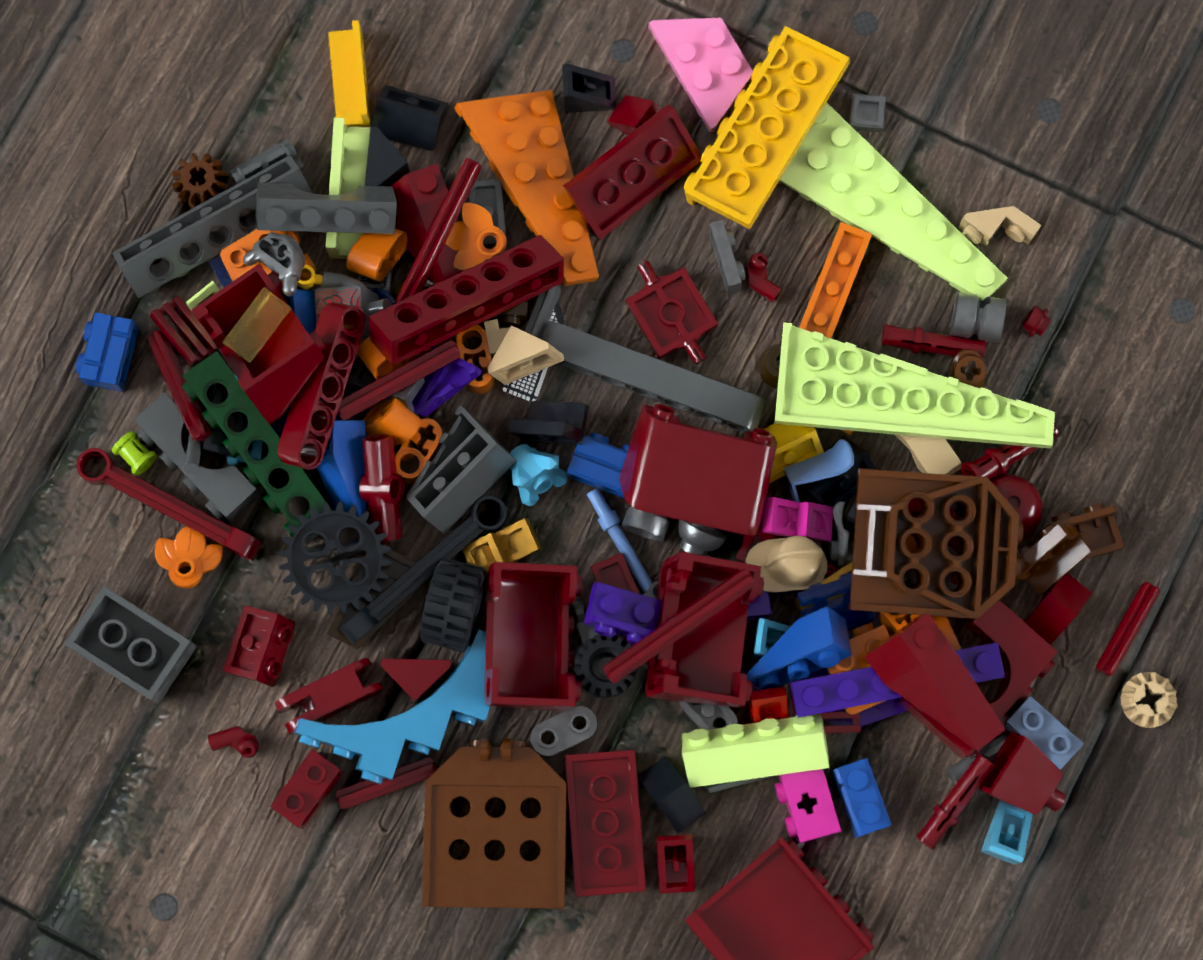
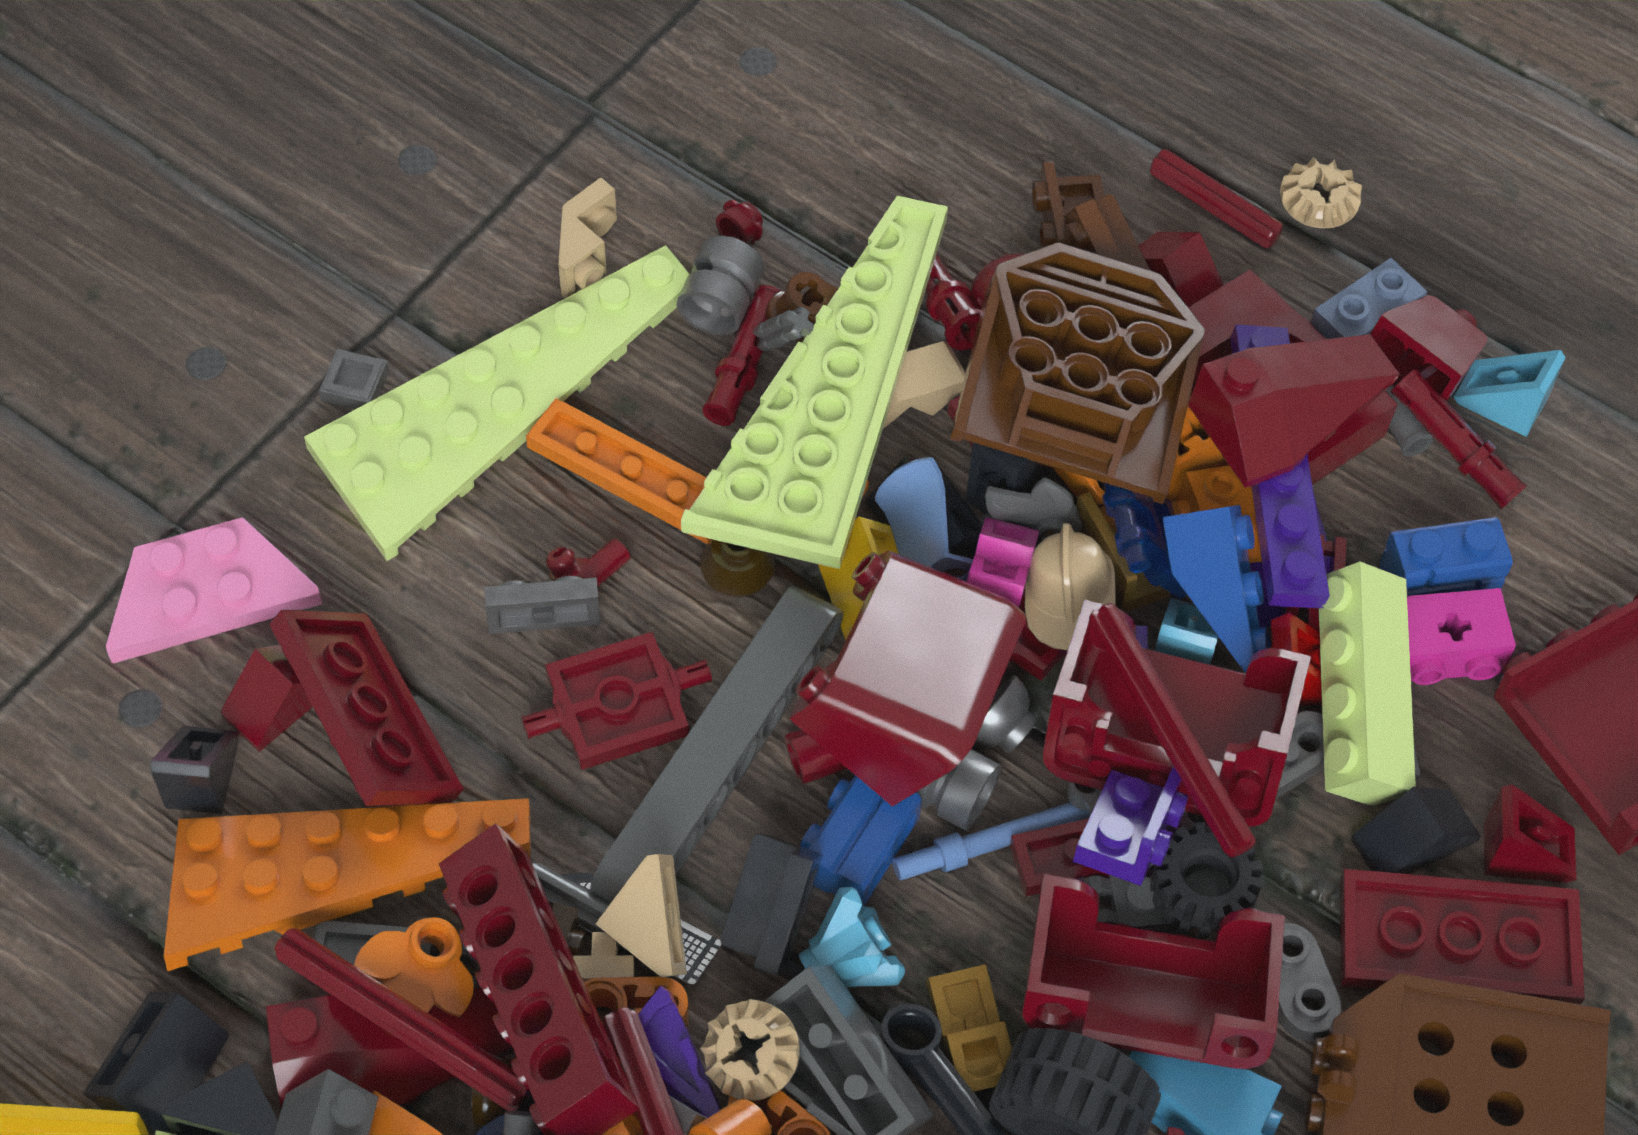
camera: 85 degrees left, 20 degrees down
(463, 416) = (775, 1059): none -> tan gear
(766, 127) = (344, 507): yellow bracket -> none
(937, 359) = (783, 329): none -> dark grey axle

